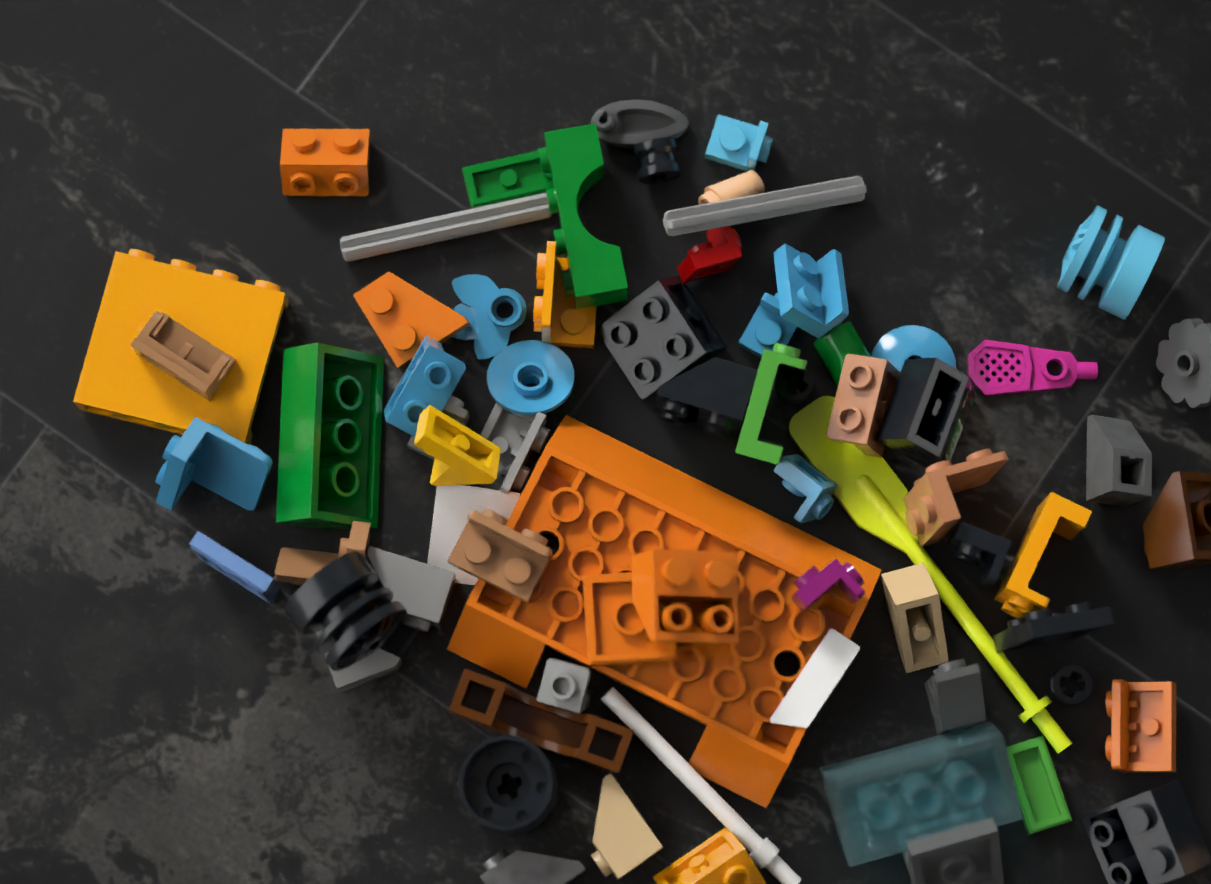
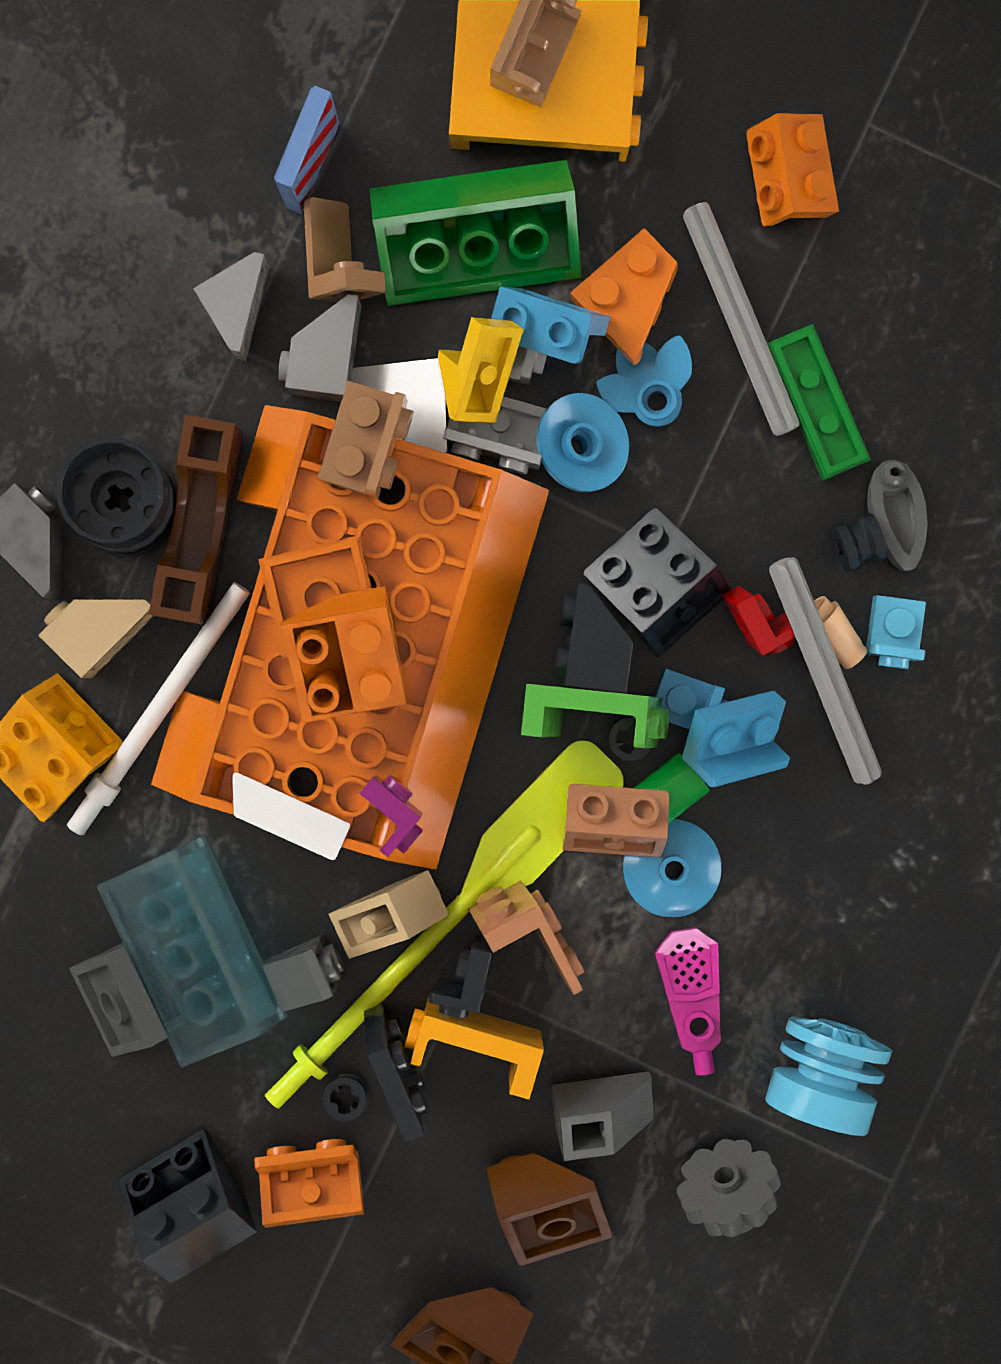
camera: 85 degrees right, 10 degrees up
(215, 462) = (430, 94): dark azure bracket -> none
(342, 607) = (276, 268): black wheel -> none
(556, 314) = (680, 466): light orange bracket -> none
(565, 686) = (237, 540): light grey bracket -> none
(595, 267) = (833, 448): green arch -> none
(806, 480) = (518, 772): dark azure bracket -> none
(927, 411) = (618, 892): black slope -> none
(1037, 786) = (228, 1075): bright green tile -> none

